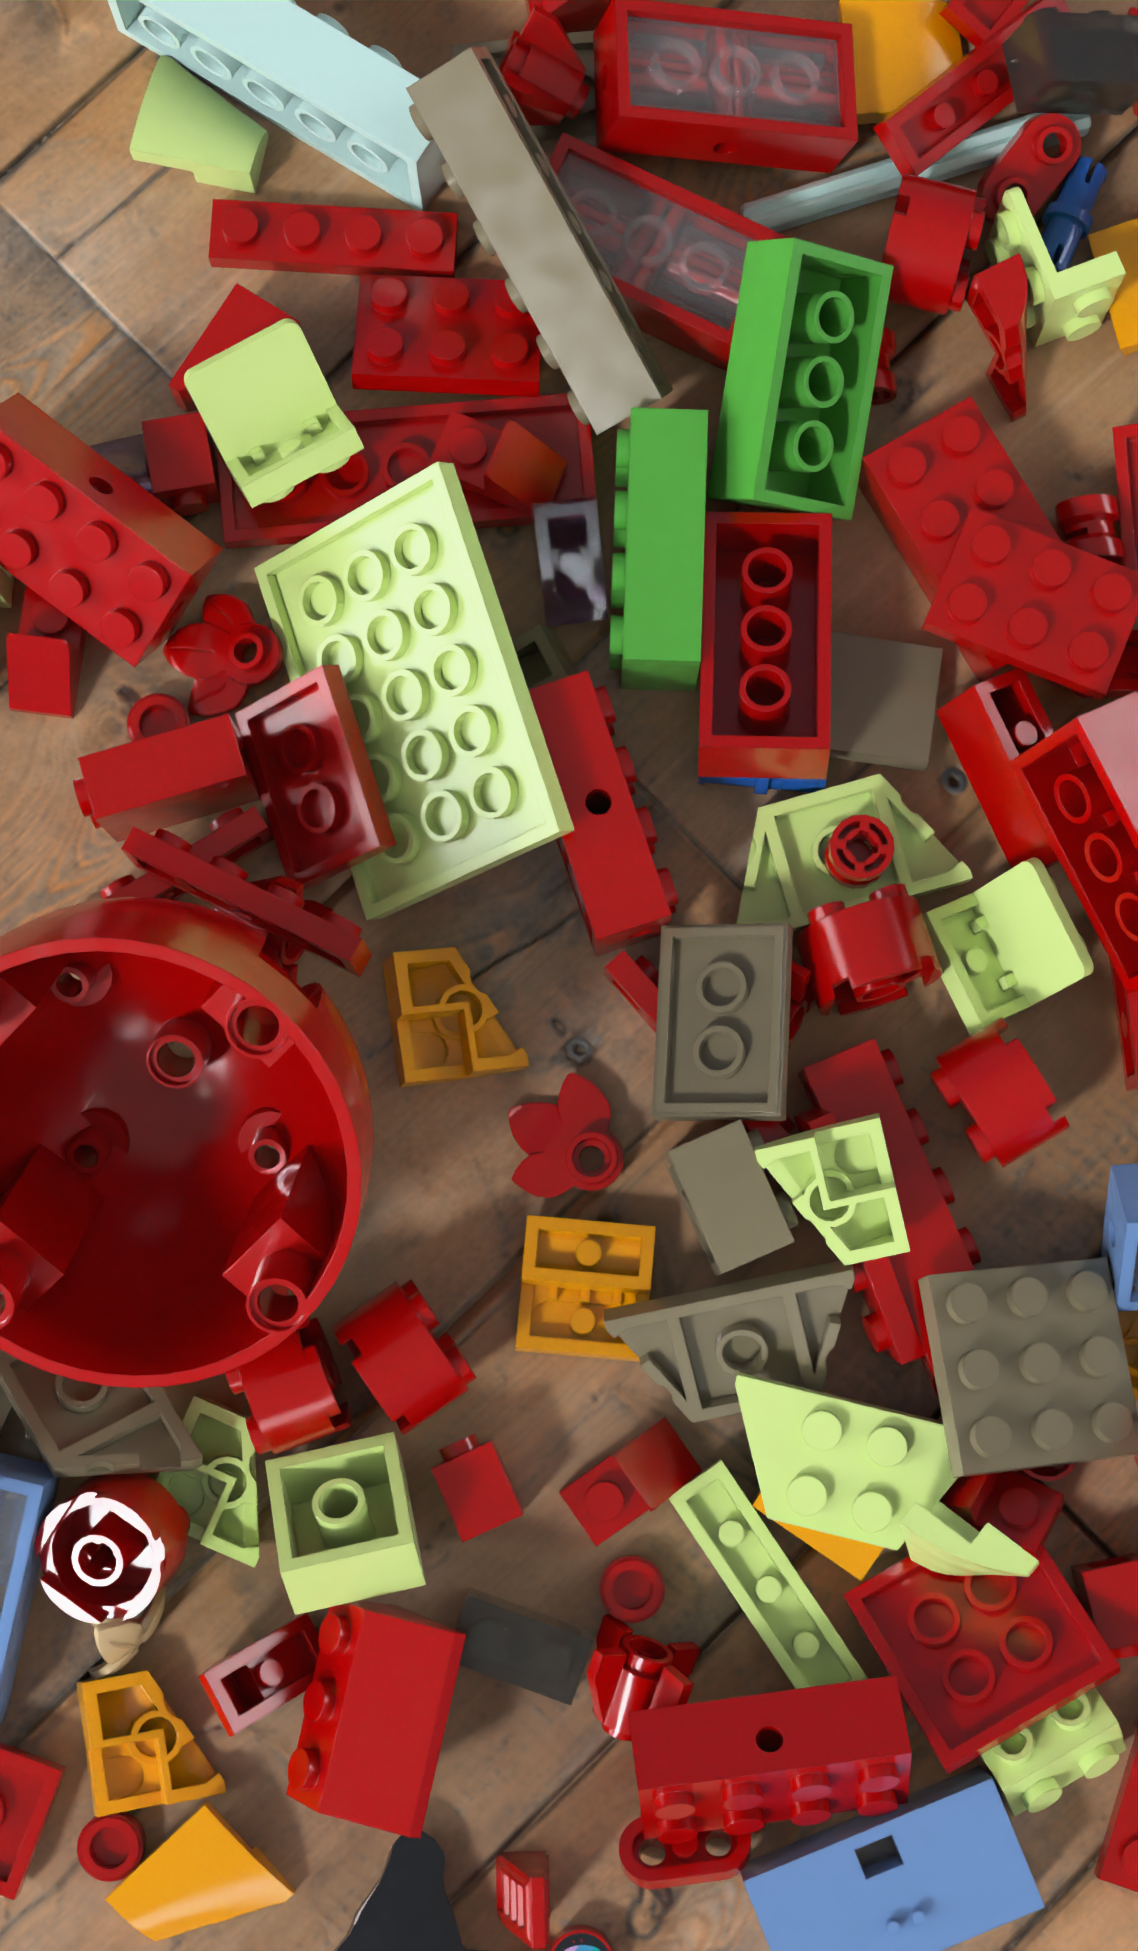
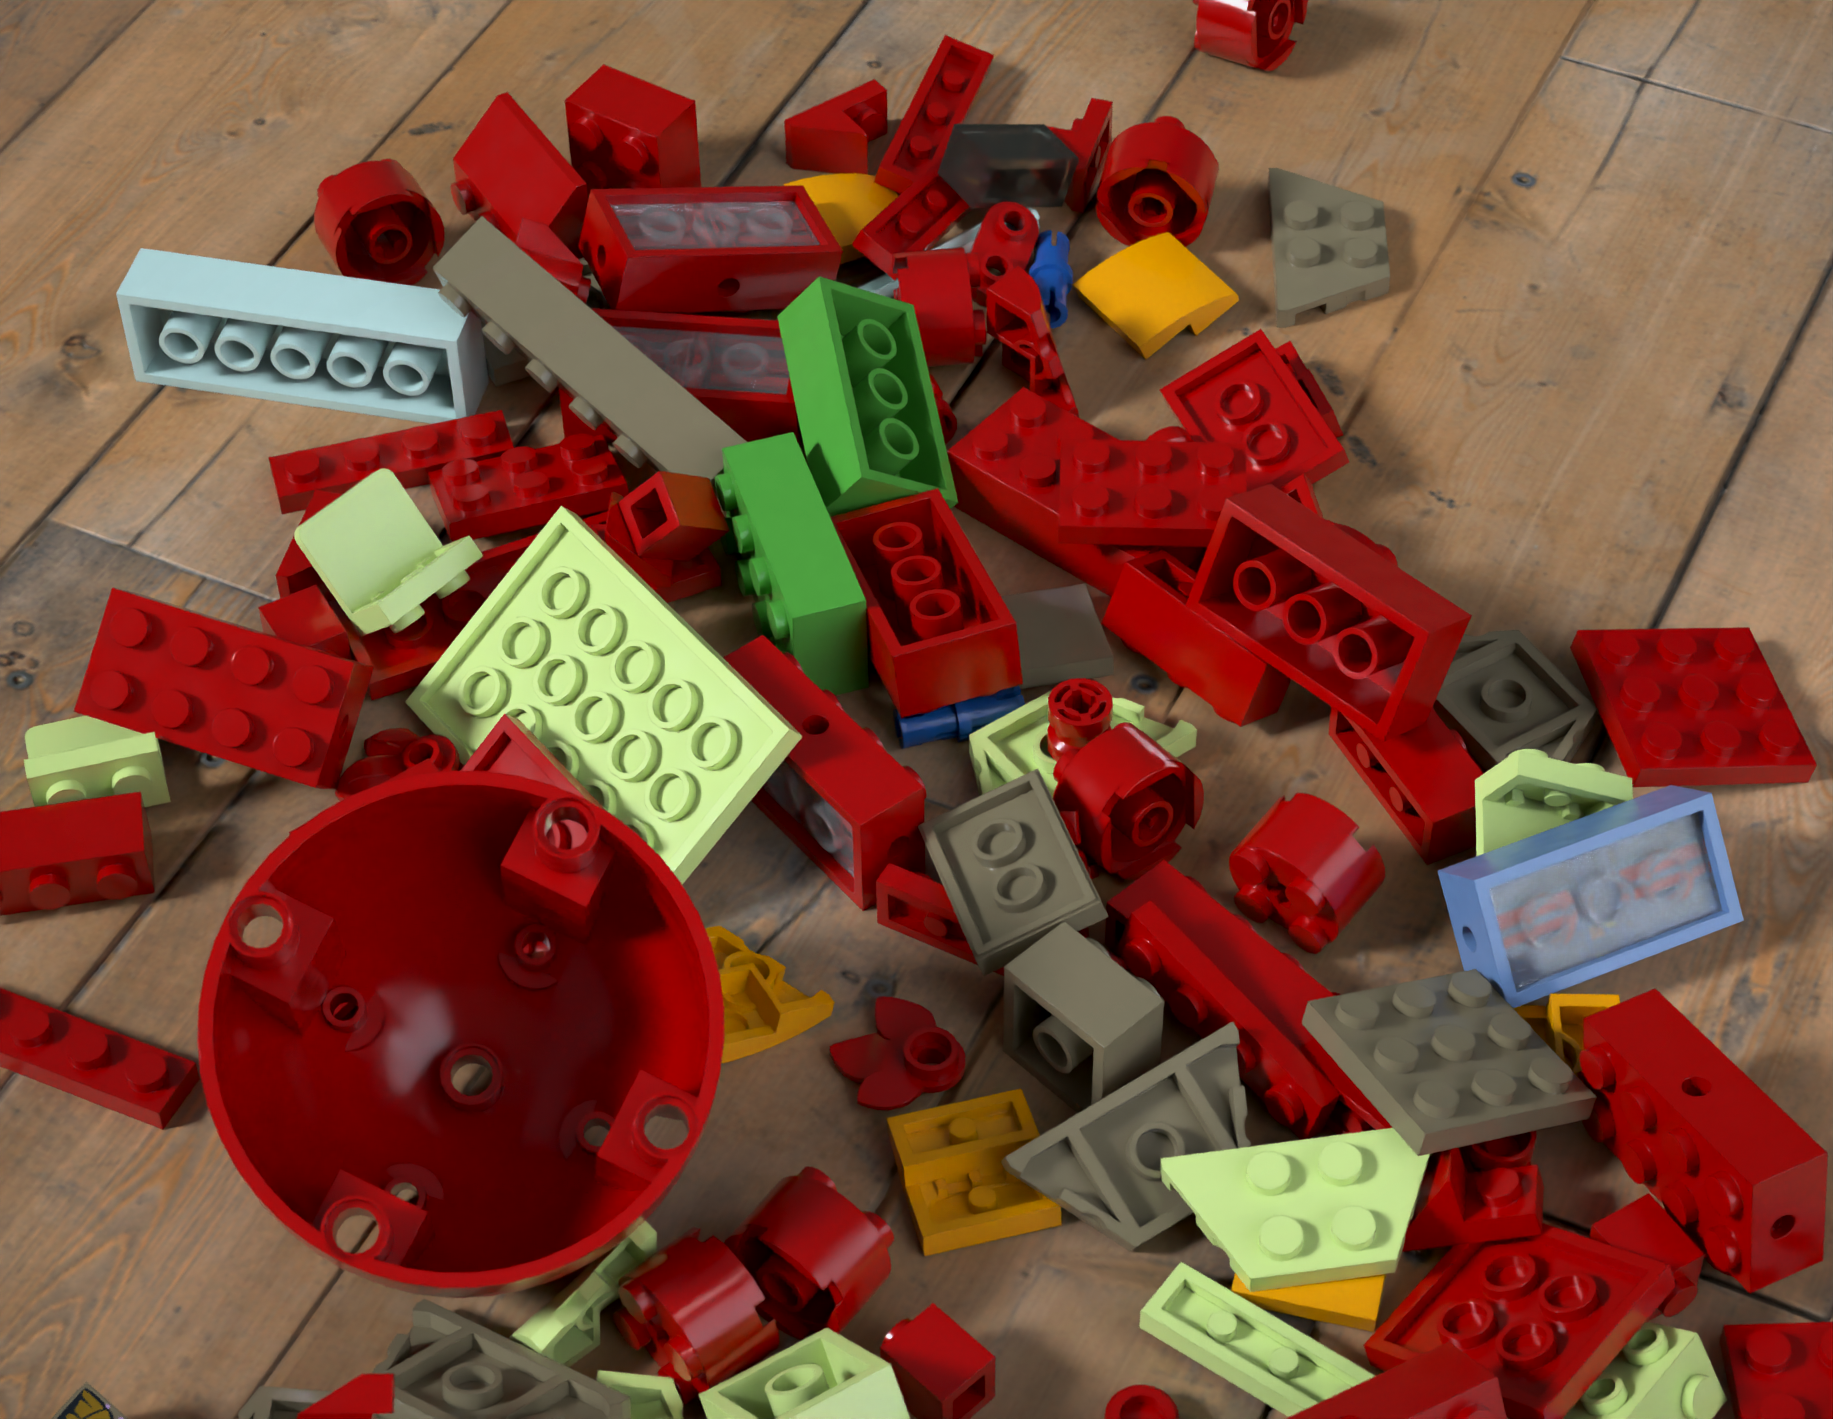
camera: 20 degrees left, 35 degrees down
(44, 660) = (220, 824): red slope -> none
(197, 131) = (229, 417): yellowish green slope -> none
(561, 464) = (673, 516): none -> red brick
(570, 561) = (706, 593): slope -> none
(630, 1481) = (1090, 1328): red slope -> none
(843, 1186) = (1191, 947): yellowish green slope -> none
(953, 1547) = (1456, 1213): yellowish green slope -> none
(1007, 945) = (1259, 748): yellowish green bracket -> none
(1060, 302) = (1075, 297): yellowish green bracket -> none

